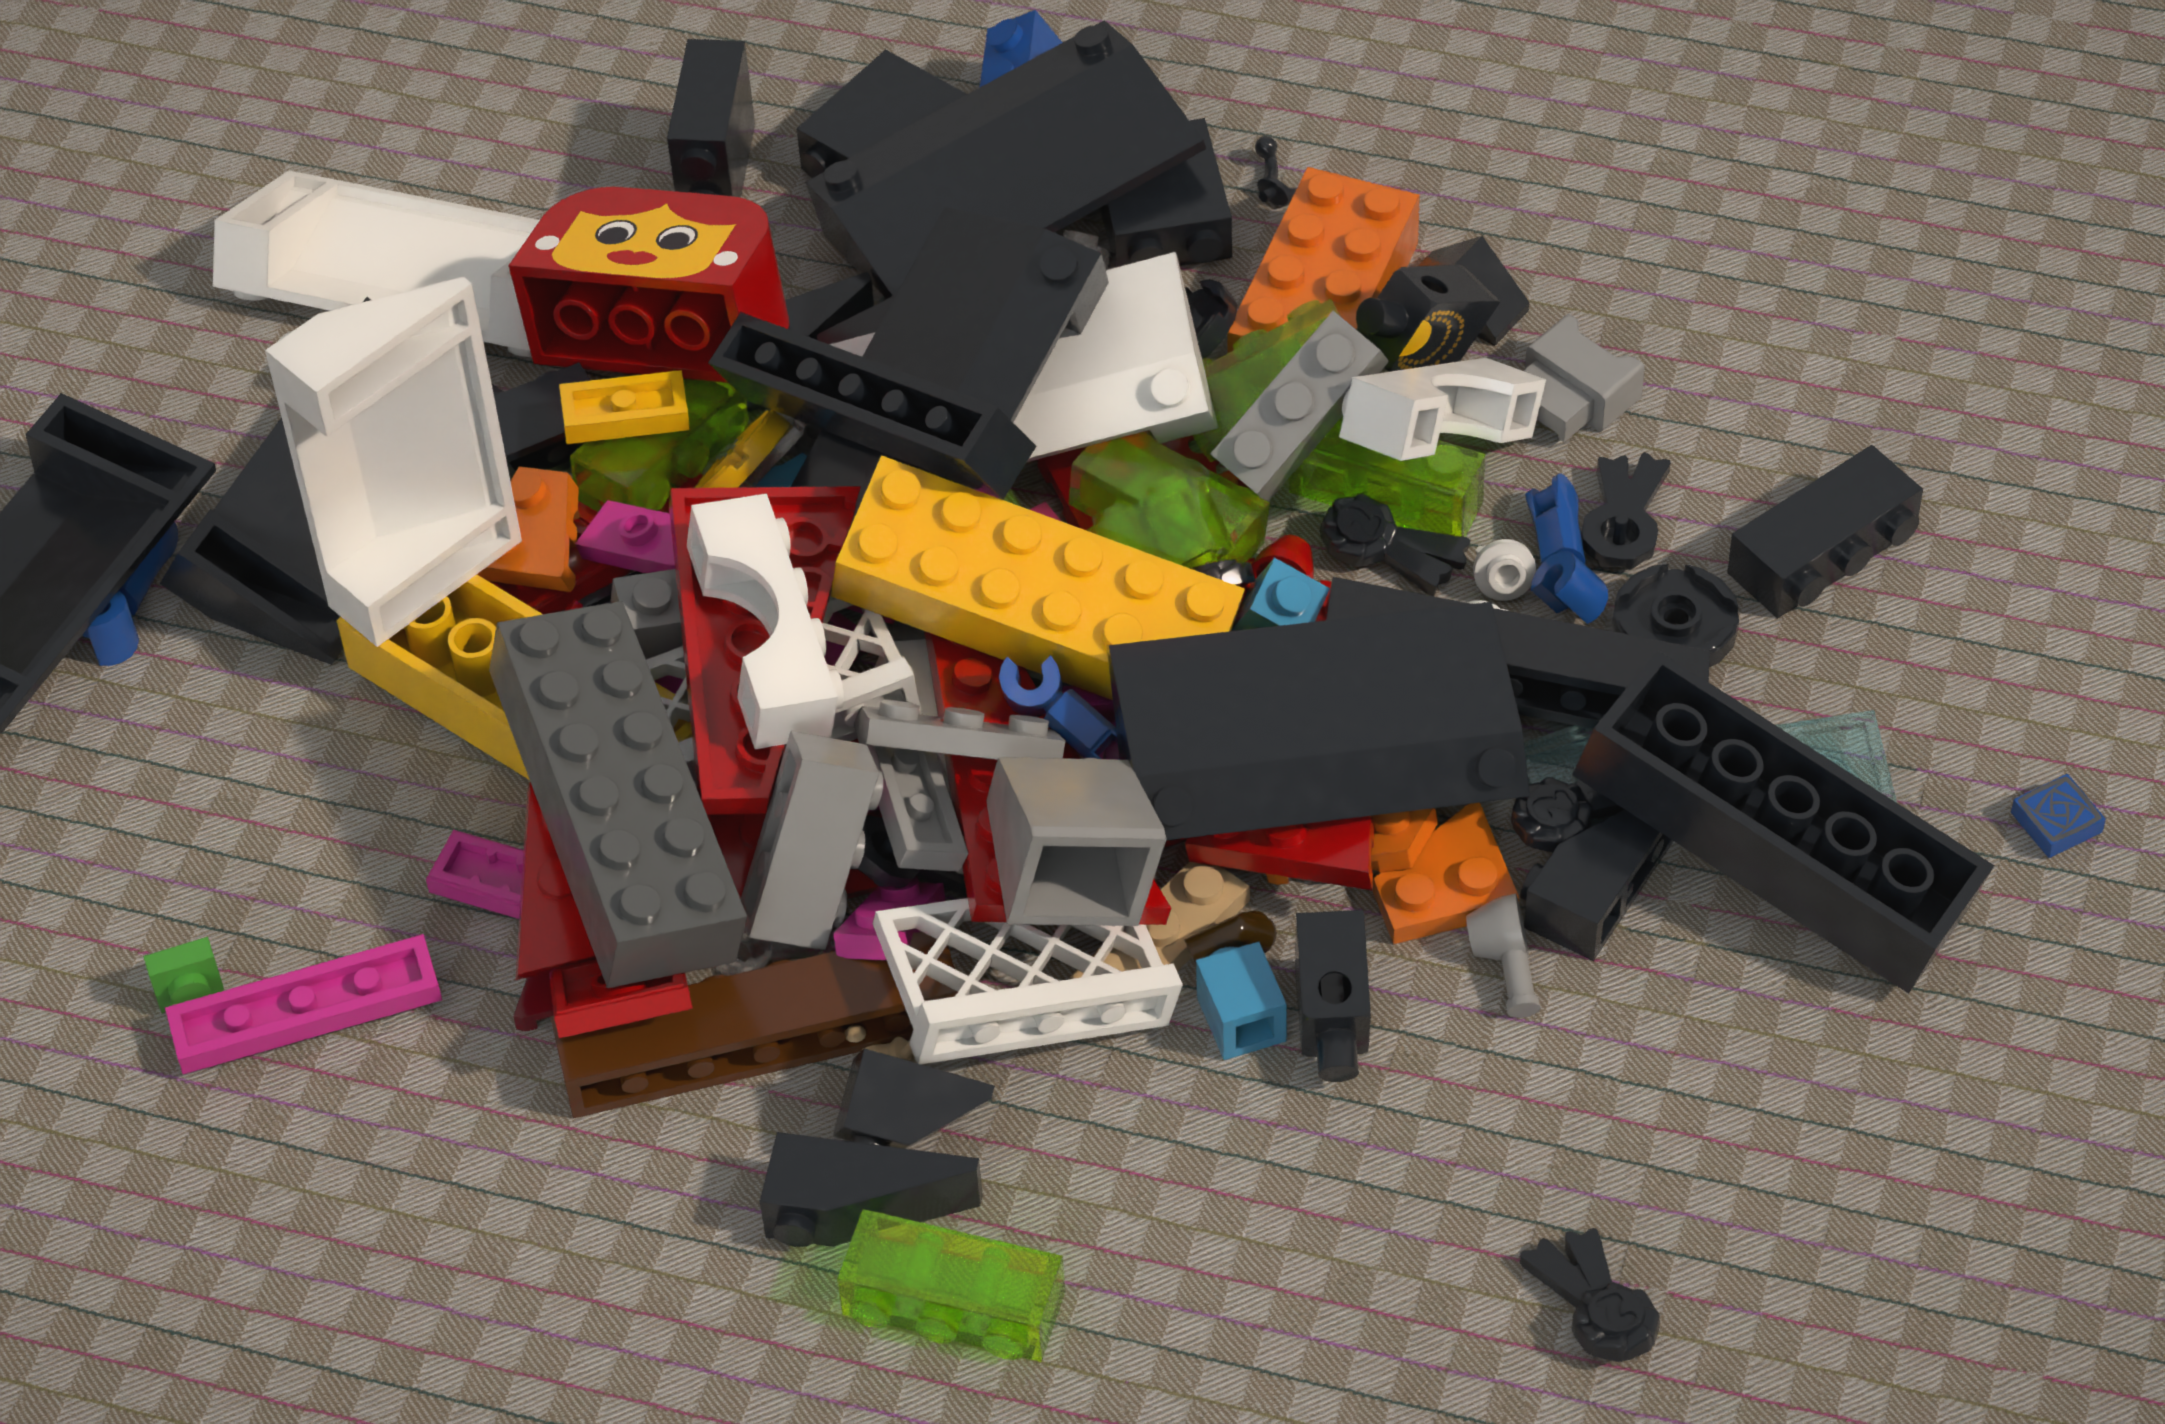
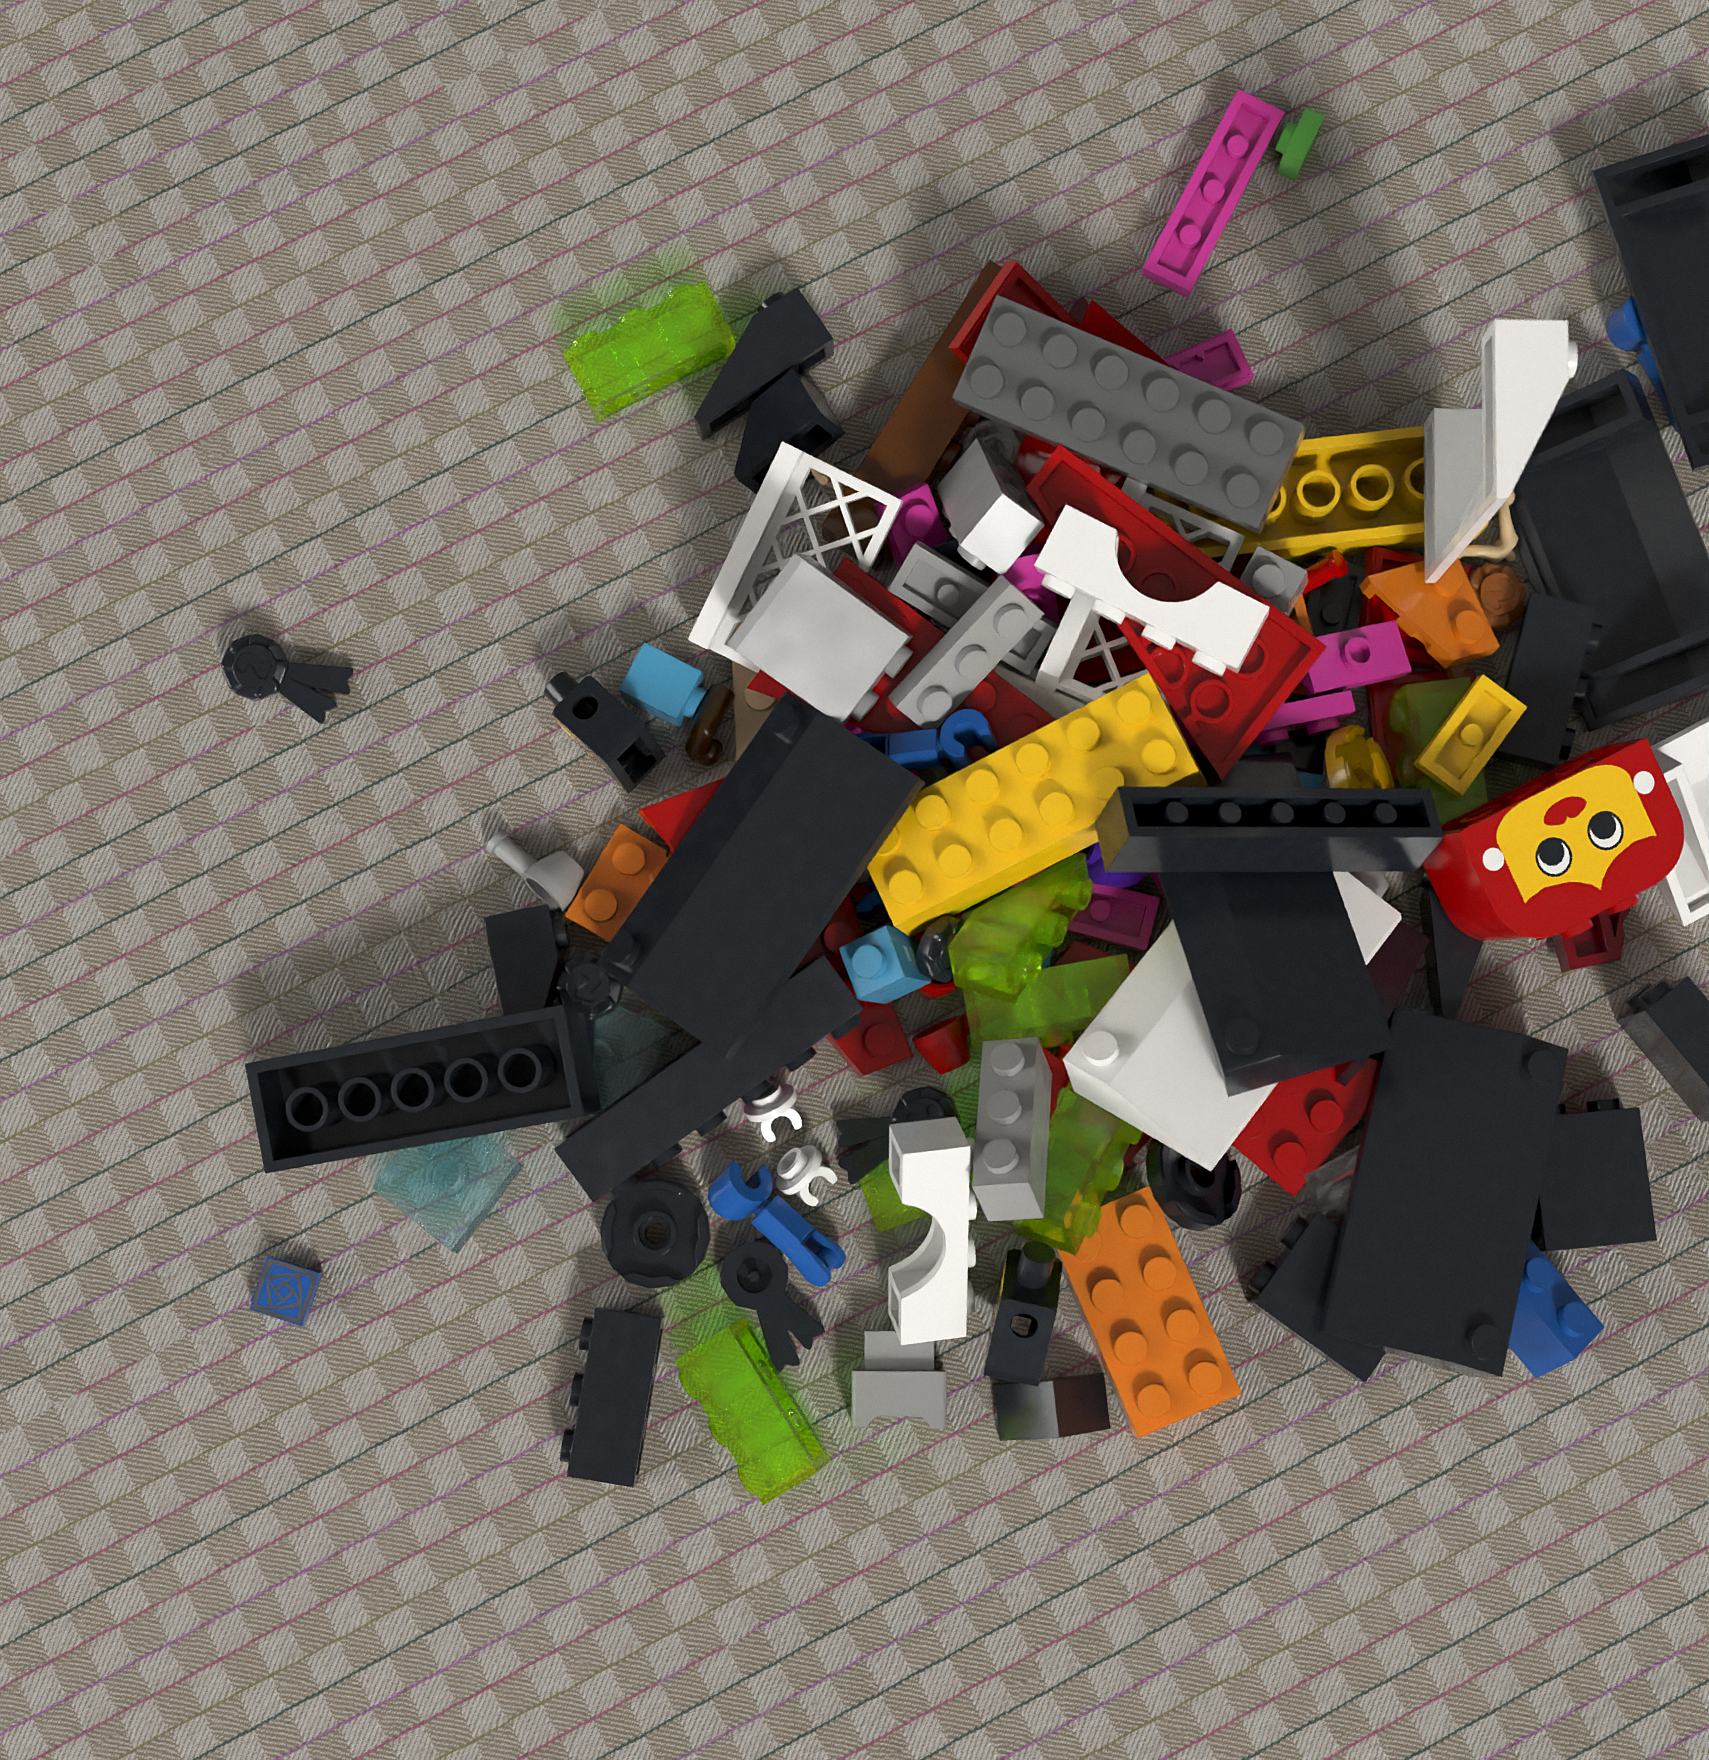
camera: 135 degrees right, 30 degrees up
(1269, 186) = (1235, 1420): black piece -> none
(1717, 439) = (752, 1412): none -> clear neon green brick

